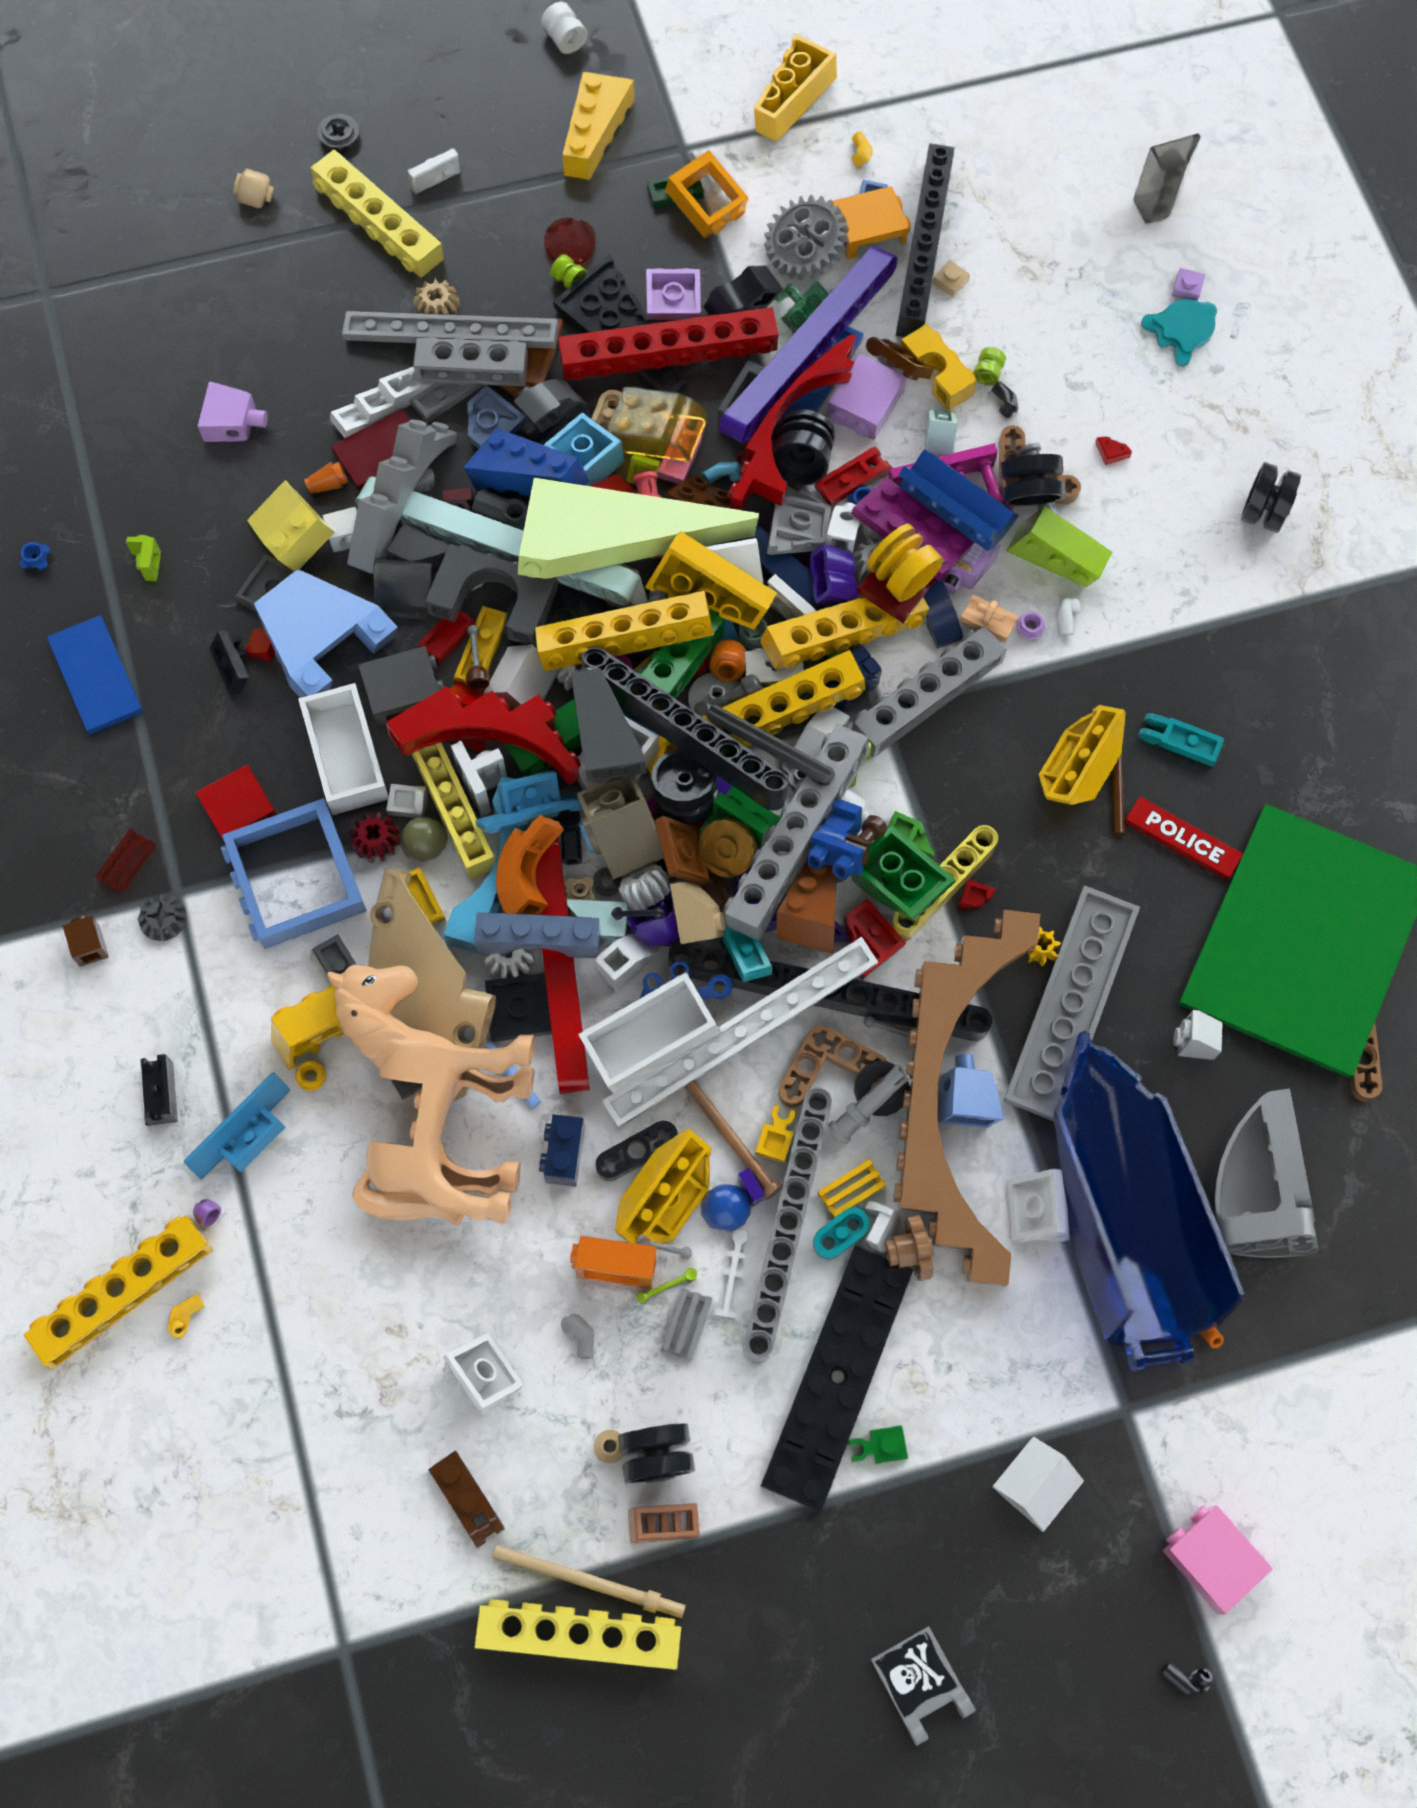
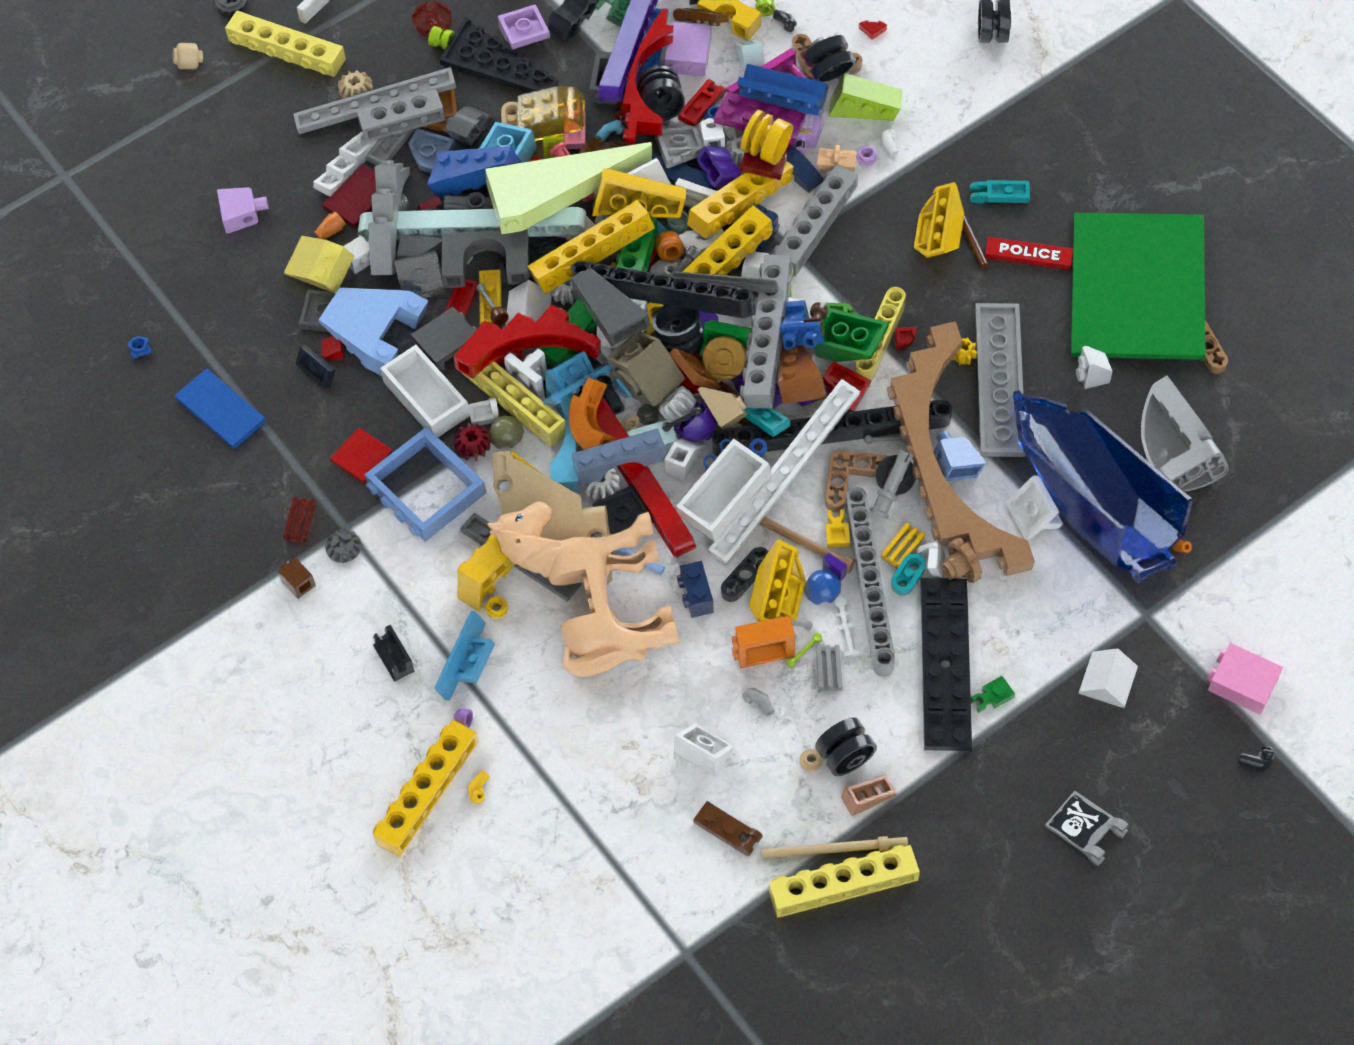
camera: 15 degrees left, 10 degrees down
(147, 555) = (220, 314): lime bracket -> none
(668, 343) = (535, 58): red brick -> none

